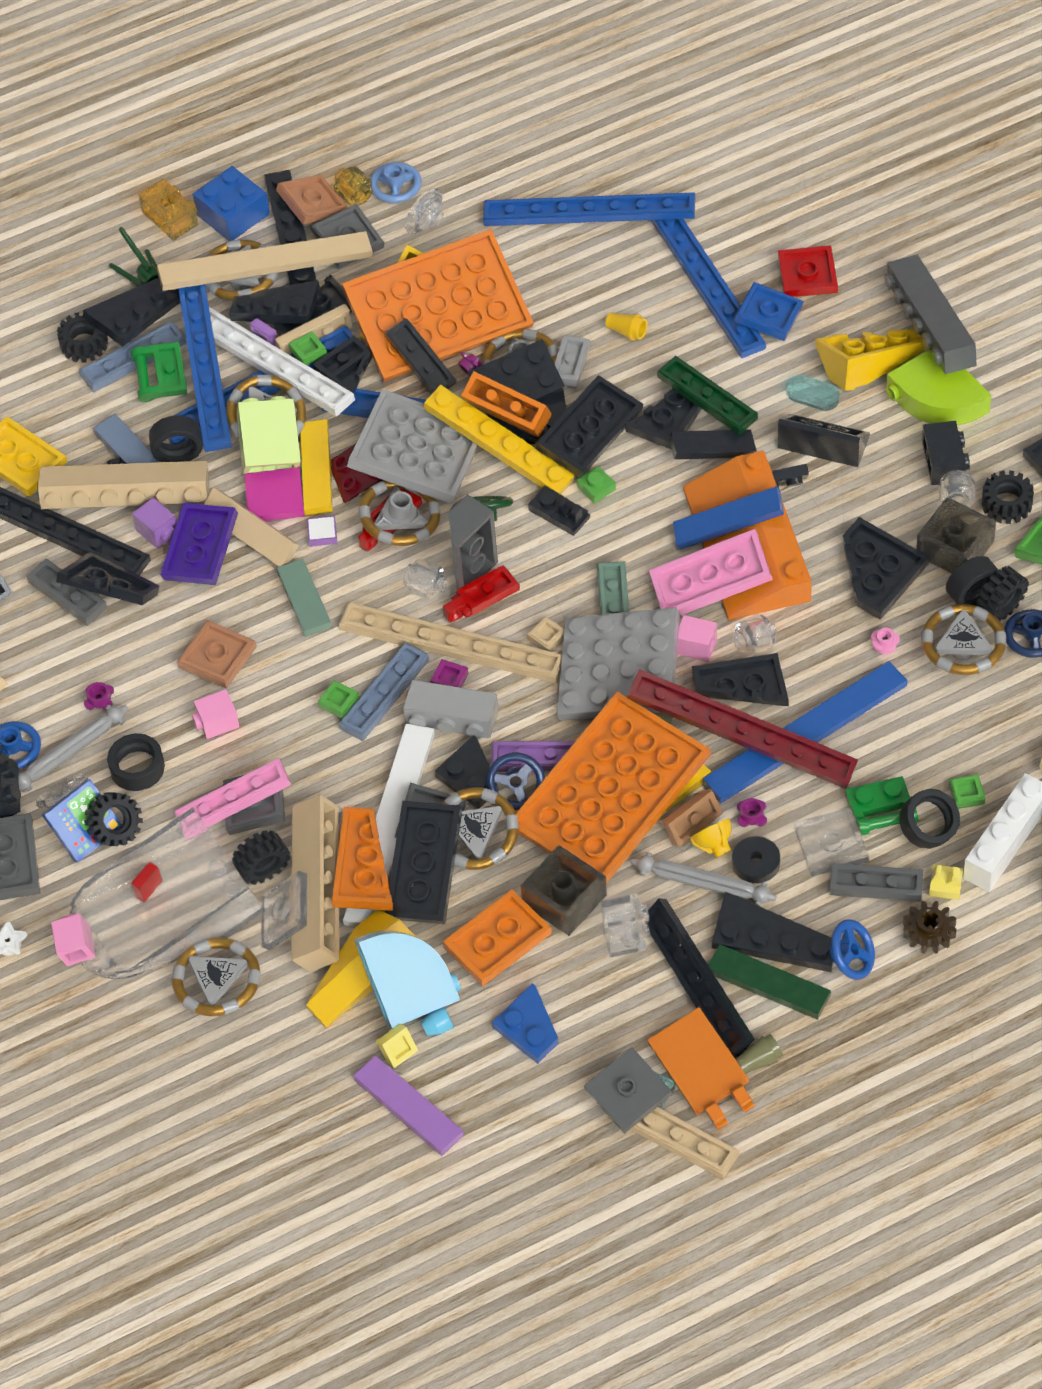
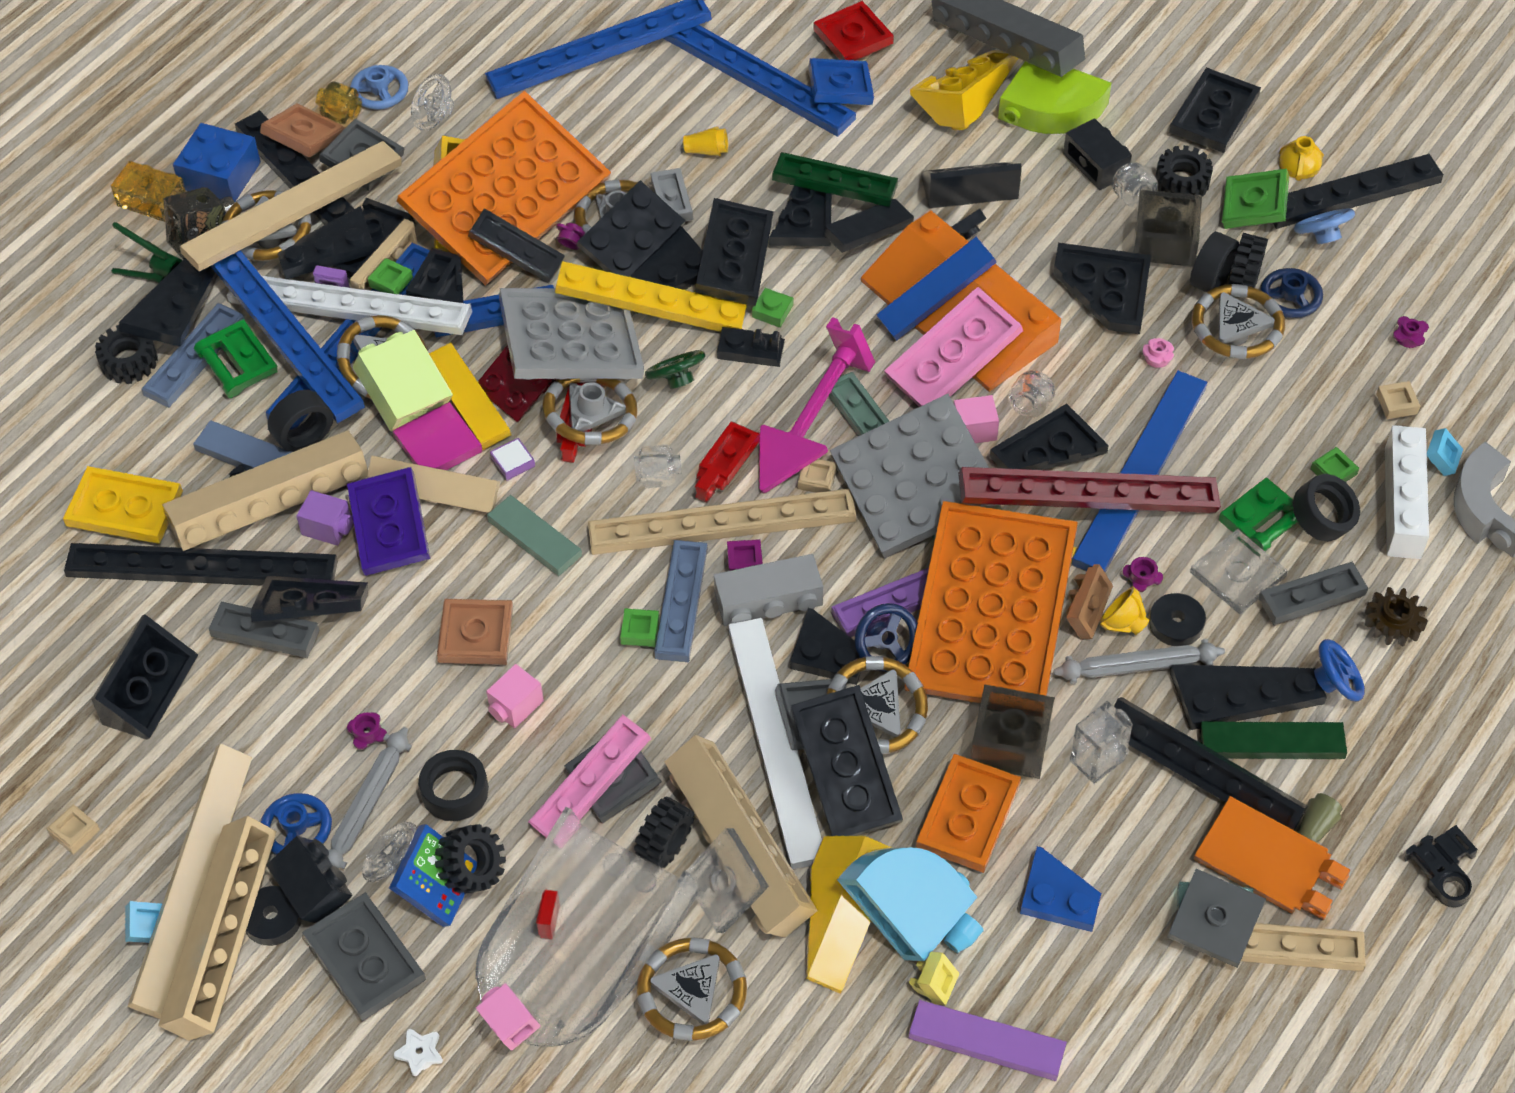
camera: 30 degrees left, 0 degrees up
(188, 240) = (192, 215): none -> clear smoke torso
(360, 864) = (778, 795): orange wing -> none
(472, 540) = (692, 406): dark grey slope -> none
(506, 404) = (644, 256): orange brick -> none
(535, 606) = (788, 452): none -> dark pink piece
(812, 393) = (930, 144): clear light blue tile -> none
(839, 1122) = (1444, 856): none -> black piece
(946, 882) = (1376, 565): light yellow tile -> none

